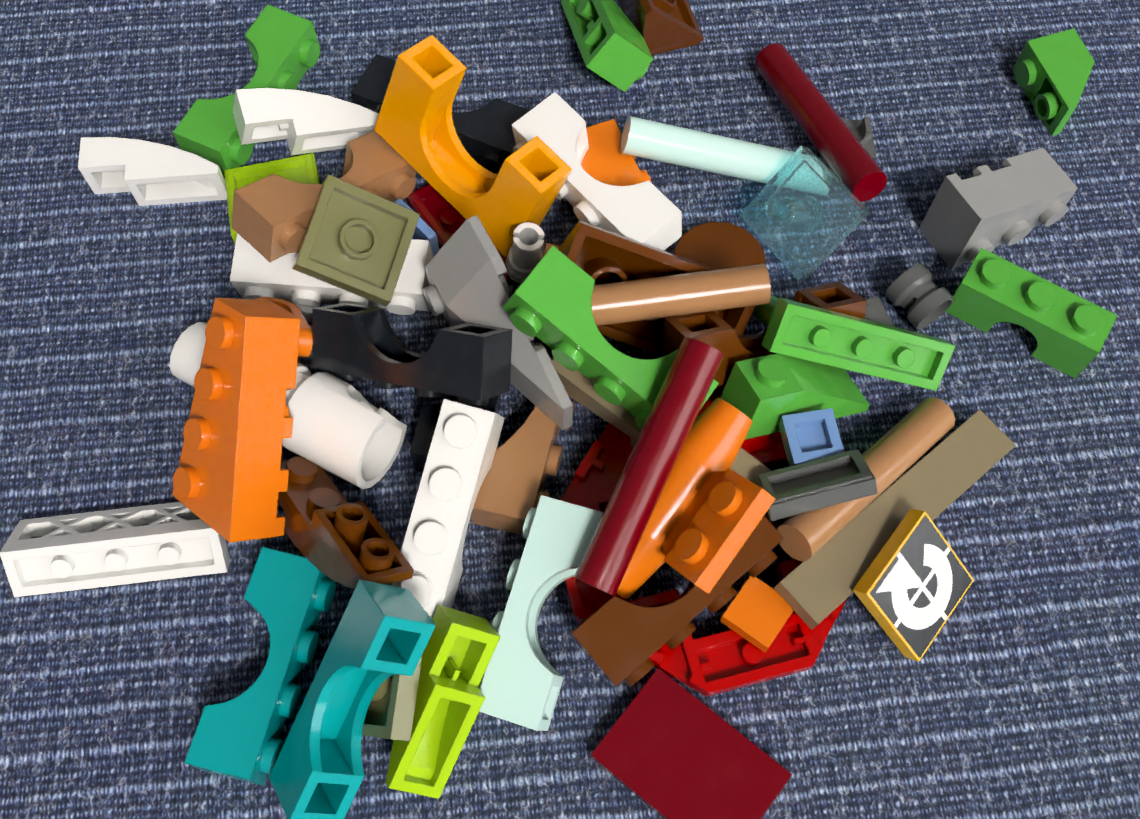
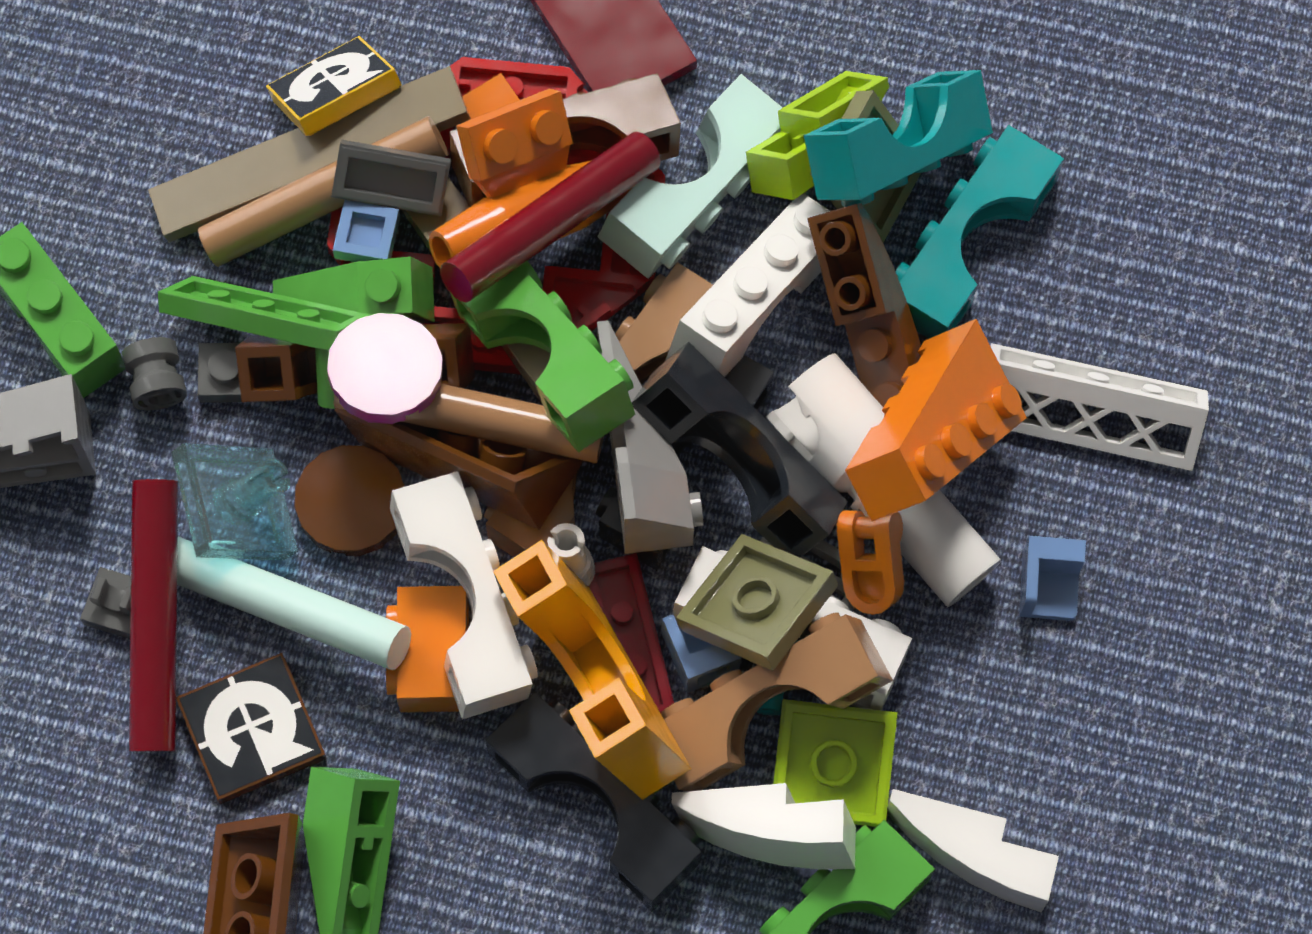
camera: 160 degrees left, 5 degrees up
(131, 386) = (1051, 577): none -> medium blue panel
(711, 95) = (251, 728): none -> tile
(732, 286) = (385, 368): none -> tile

